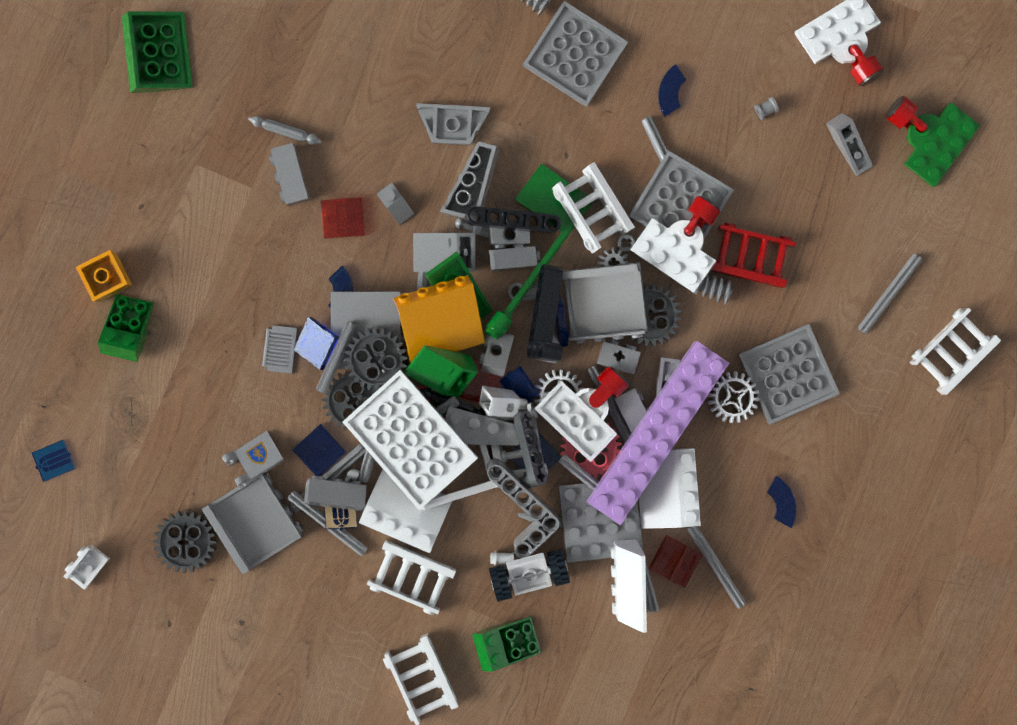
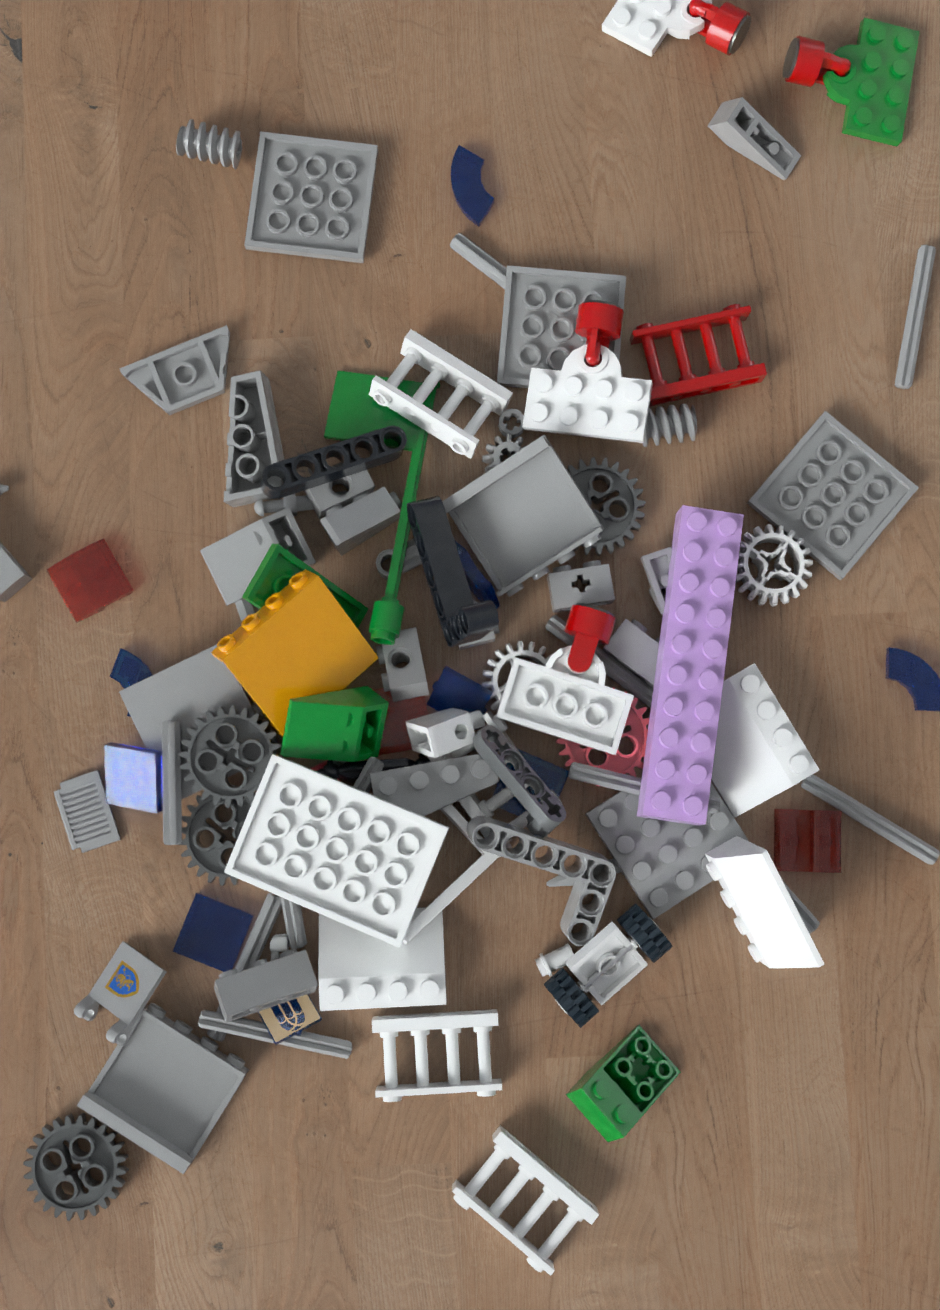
camera: 25 degrees left, 5 degrees down
(395, 204) = (157, 524): light grey slope -> none
(766, 108) = (615, 145): light grey bush -> none

